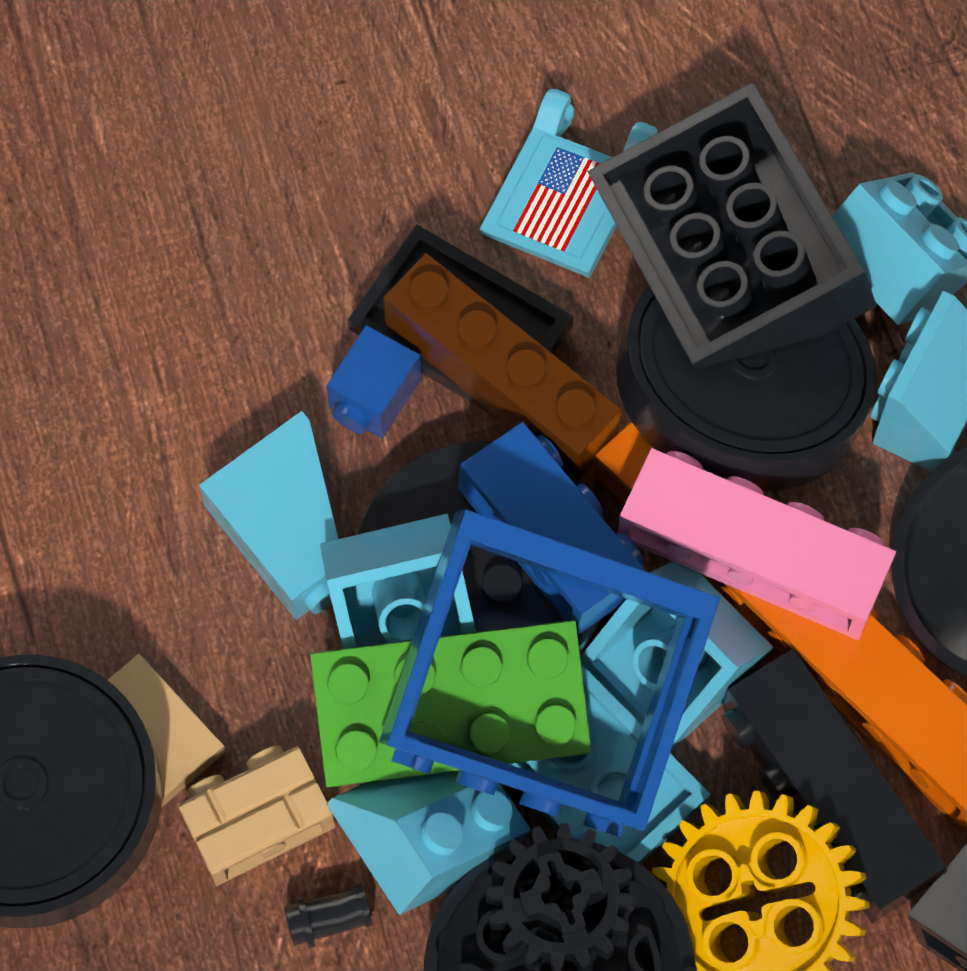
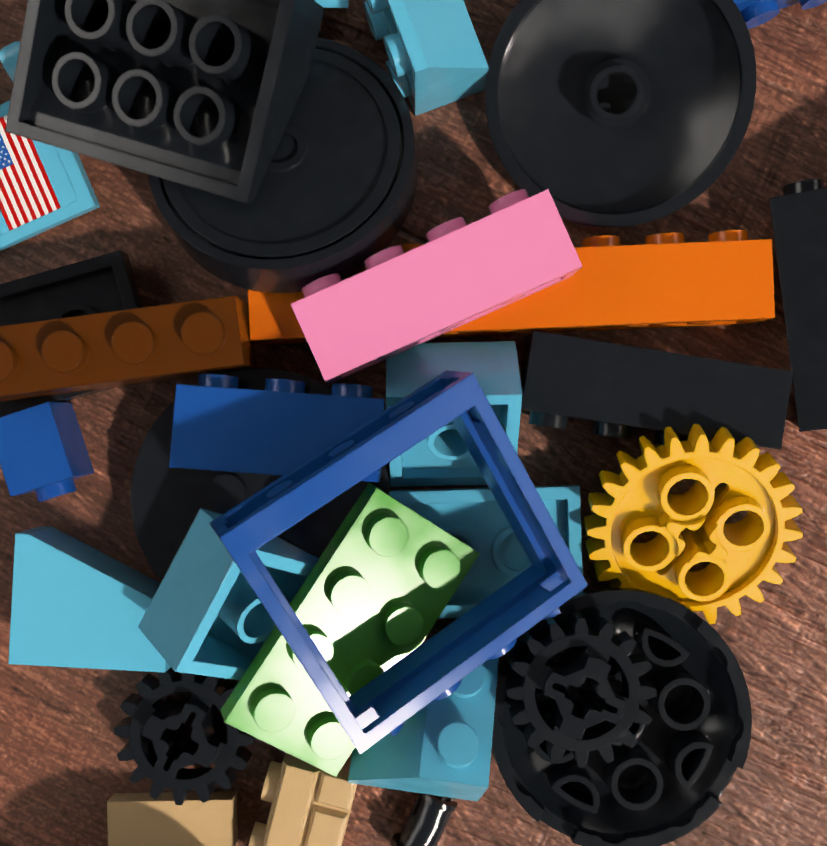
camera: 55 degrees left, 20 degrees up
(226, 669) = (211, 744): none -> black gear

